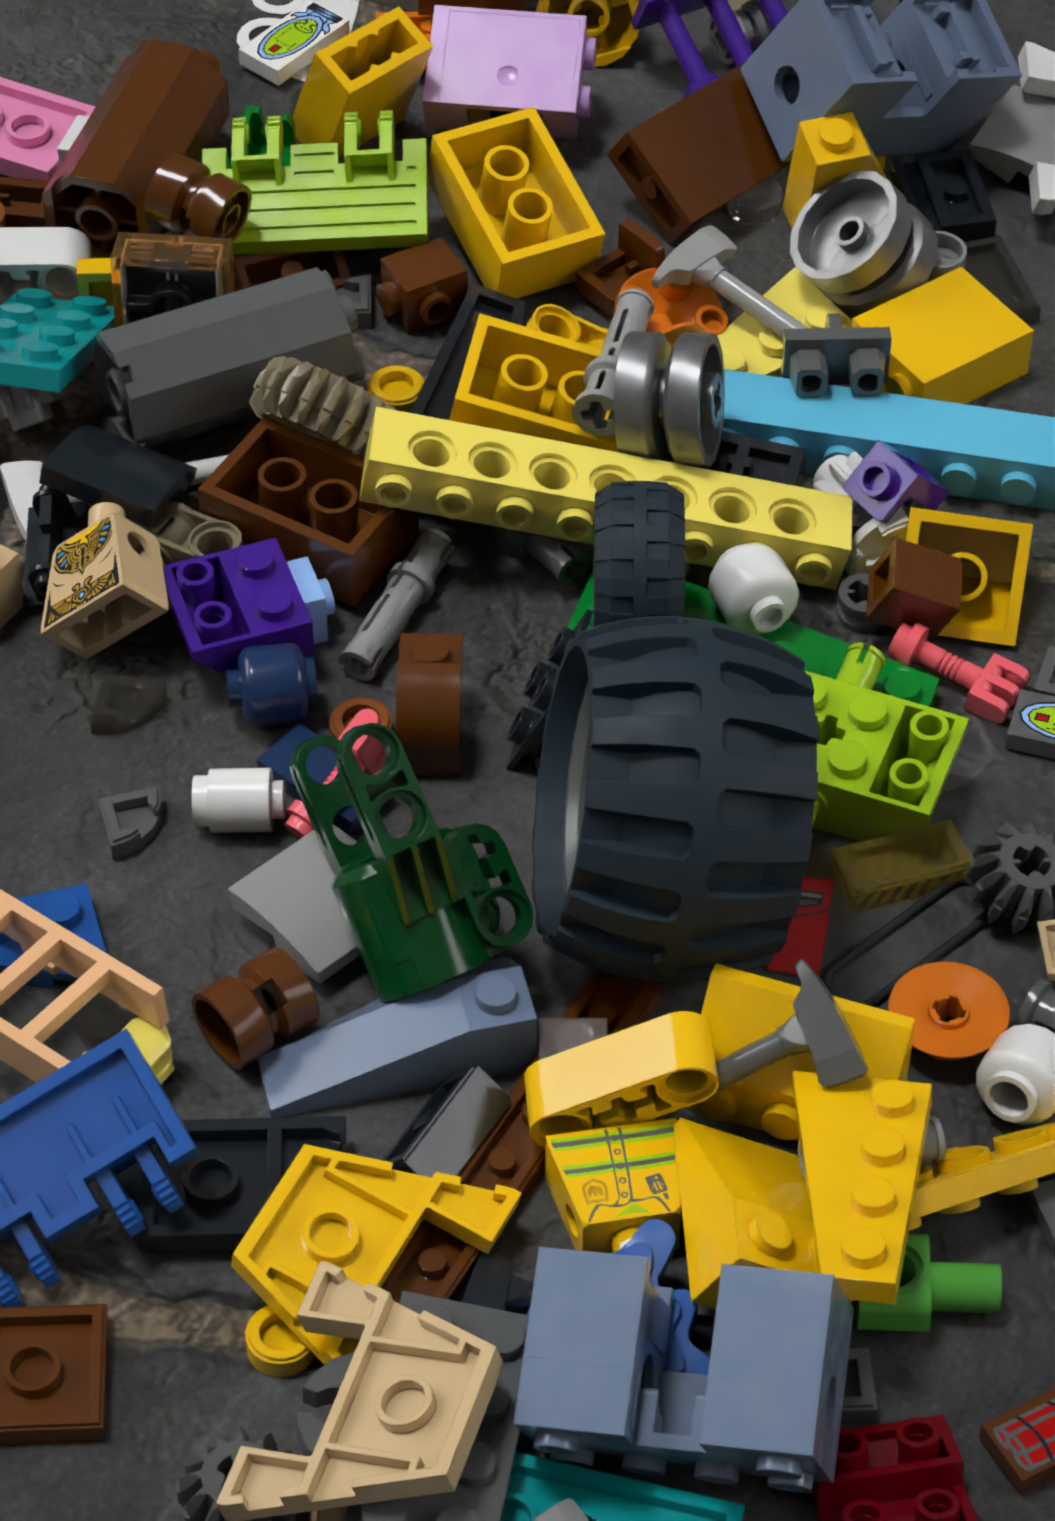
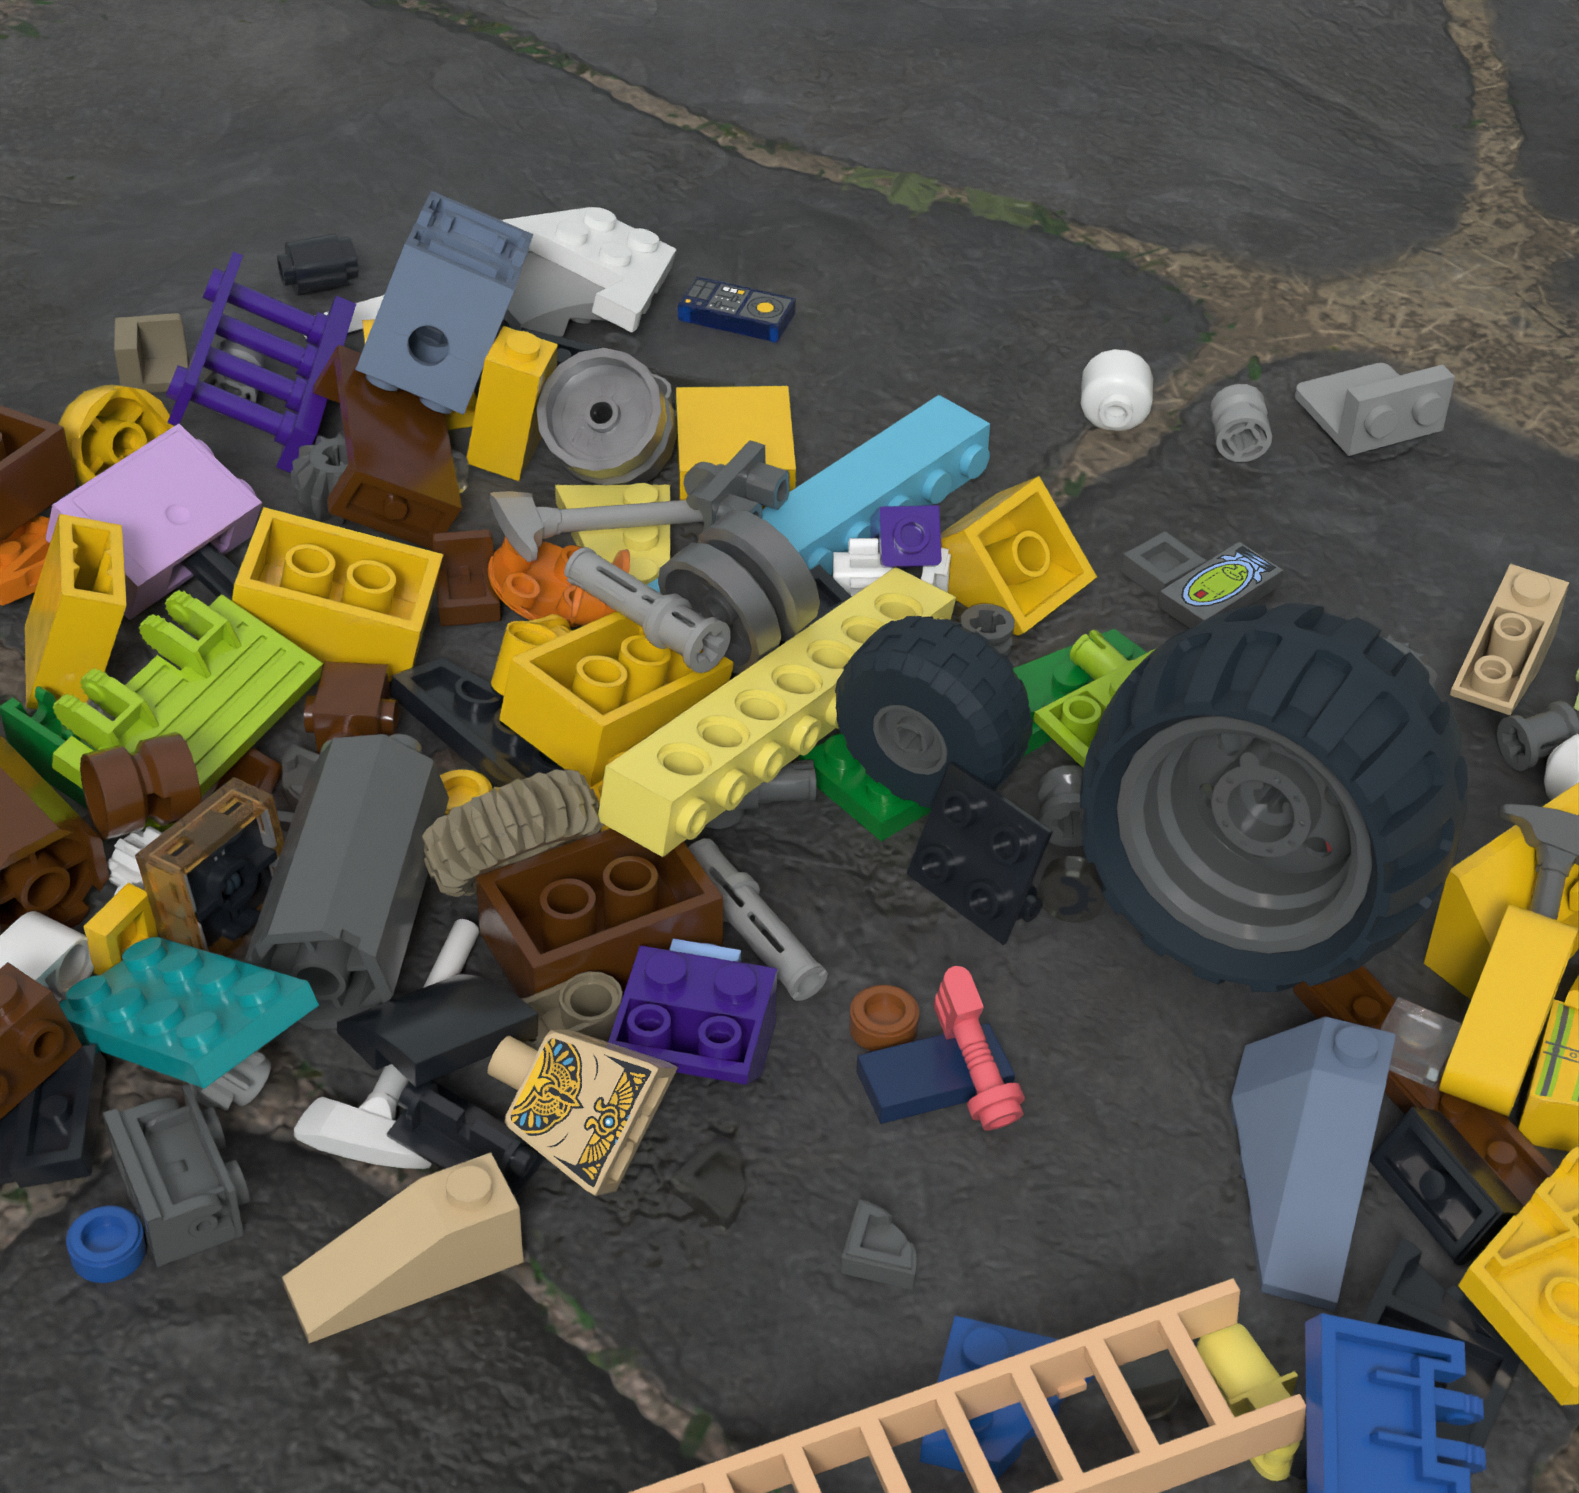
camera: 60 degrees left, 5 degrees down
(238, 800) = (930, 1145): white brick -> none
(248, 1012) = (1226, 1235): reddish brown wheel -> none
(273, 684) = (805, 1047): dark blue head -> none
(297, 906) = (1111, 1137): light grey slope -> none
(412, 893) = (1219, 1053): dark green piece -> none
(430, 703) = (922, 933): reddish brown brick -> none
(914, 587) = (1026, 585): reddish brown panel -> none
(952, 991) = (1500, 779): orange piece -> none
(991, 688) = (1126, 604): coral hinge -> none

